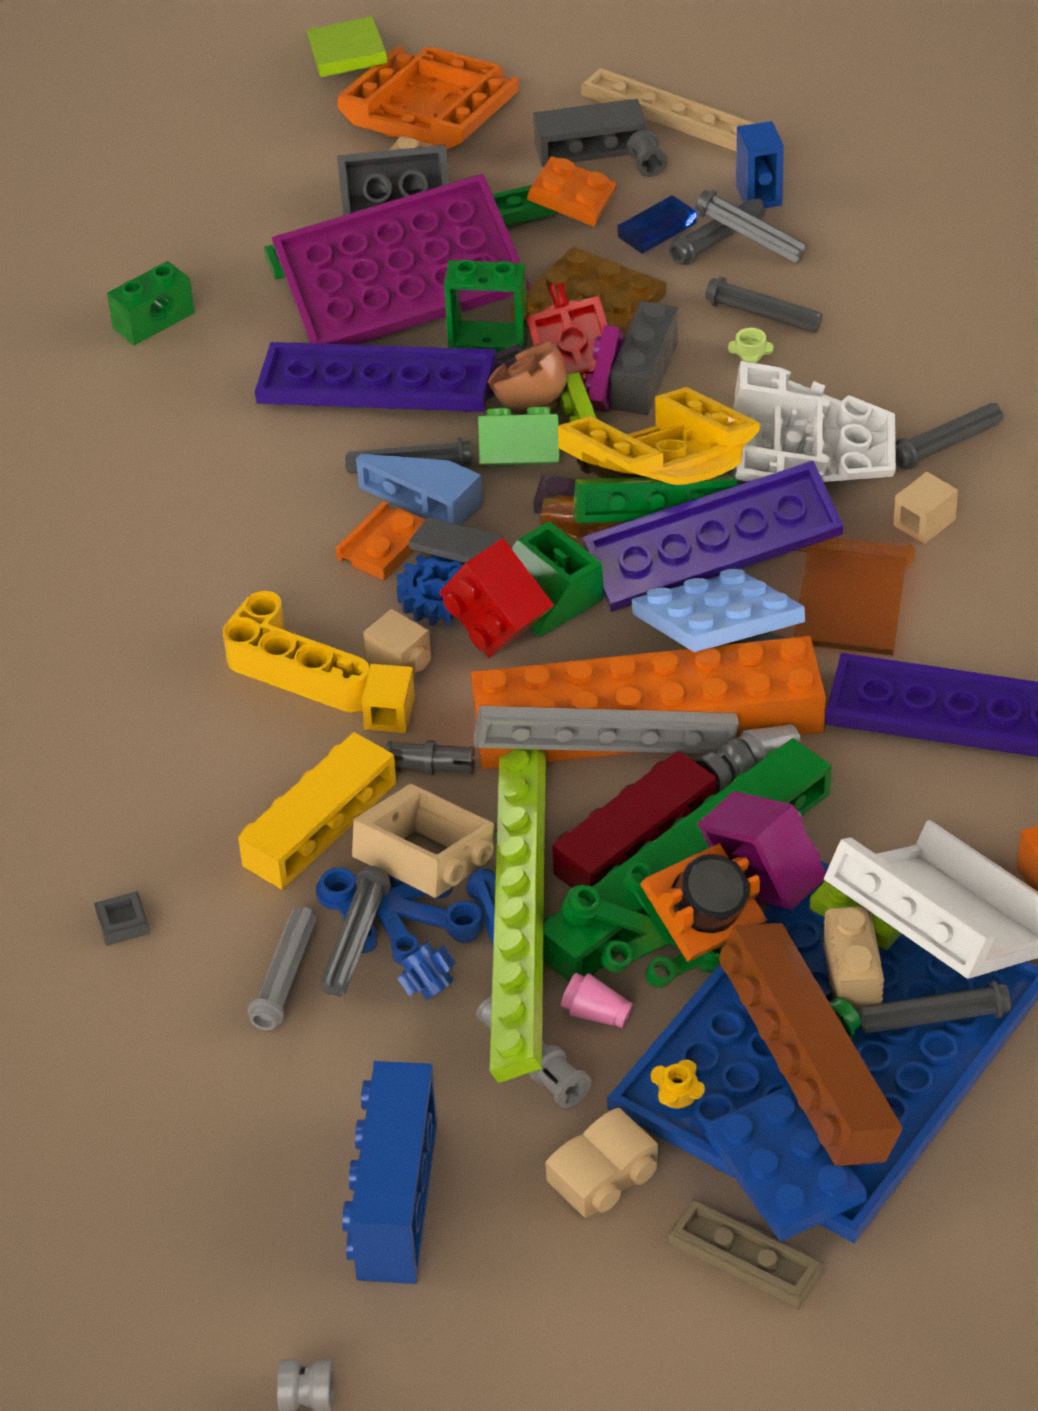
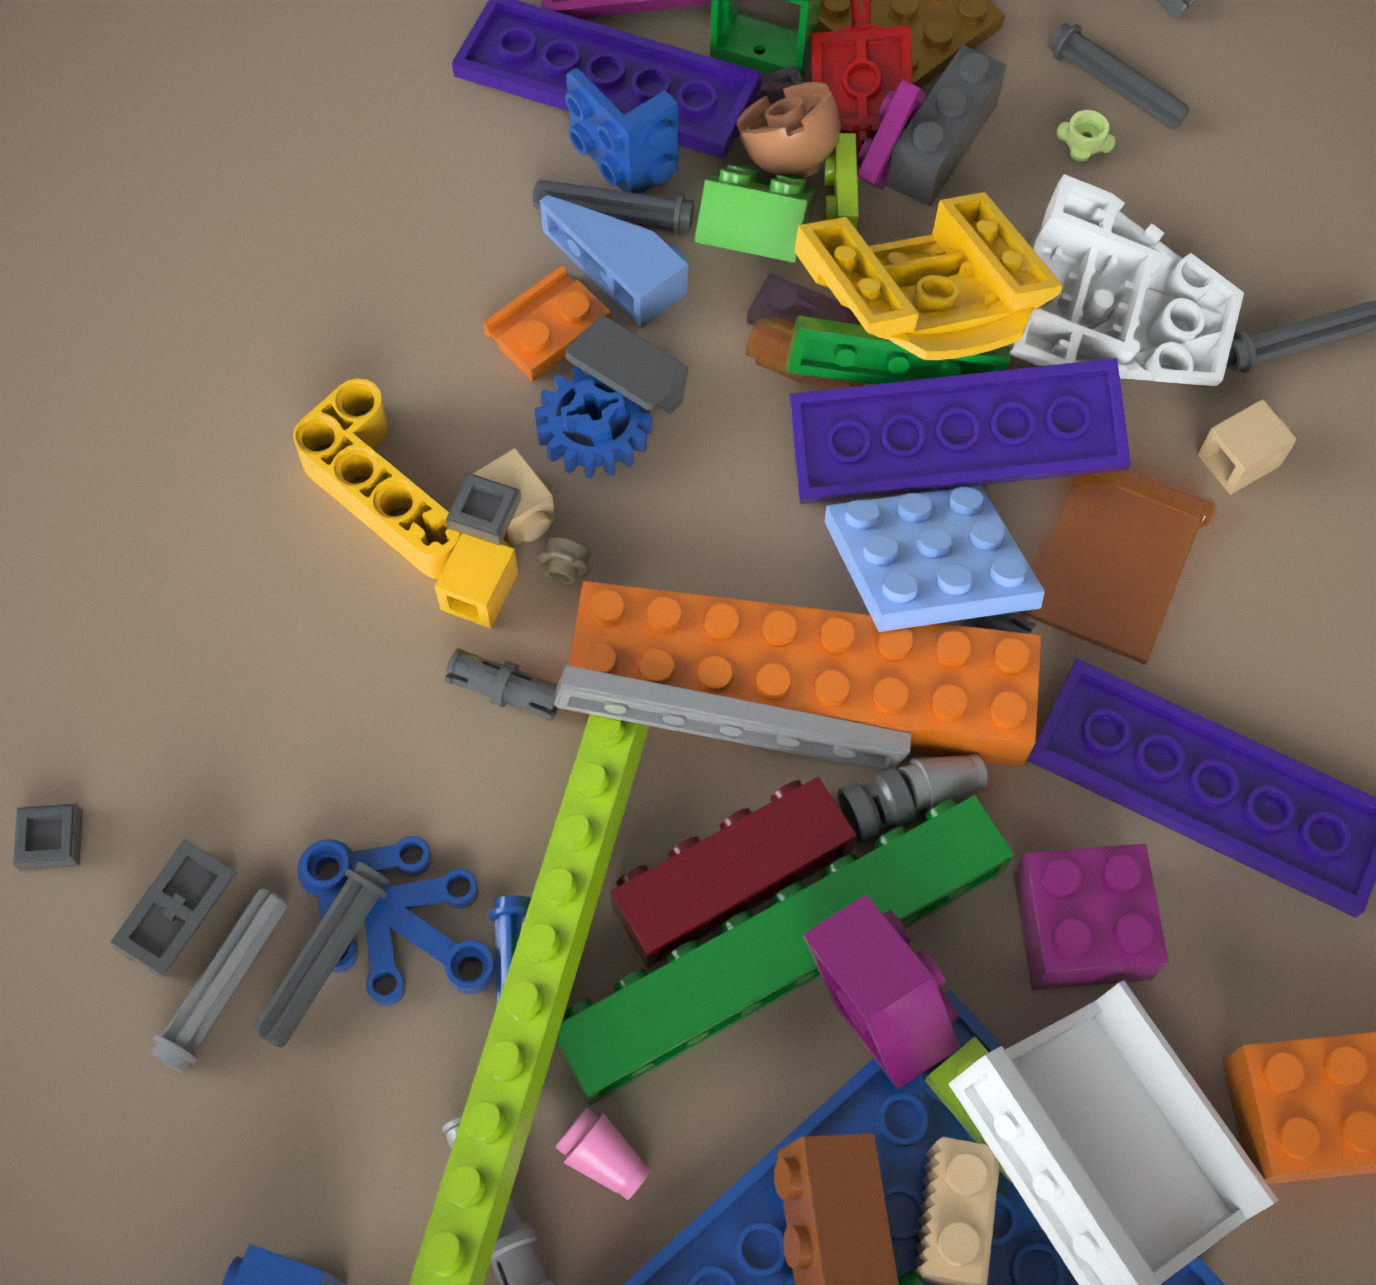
camera: 10 degrees right, 20 degrees up
(236, 929) = (172, 908): none -> dark grey hinge
(317, 810) = (335, 736): yellow brick -> none
(381, 841) = (421, 786): tan window -> none
(382, 645) = (483, 509): none -> dark grey tile
(402, 412) = (628, 148): none -> blue bracket
(426, 970) = (394, 1045): blue gear -> none
(448, 675) = (564, 560): none -> dark tan plate
(495, 598) = (646, 475): red brick -> none
(563, 571) = (727, 446): green slope -> none
(651, 927) = (711, 1070): green plant -> none
(704, 900) = (783, 1055): piece -> none
(894, 793) = (1089, 916): none -> magenta brick

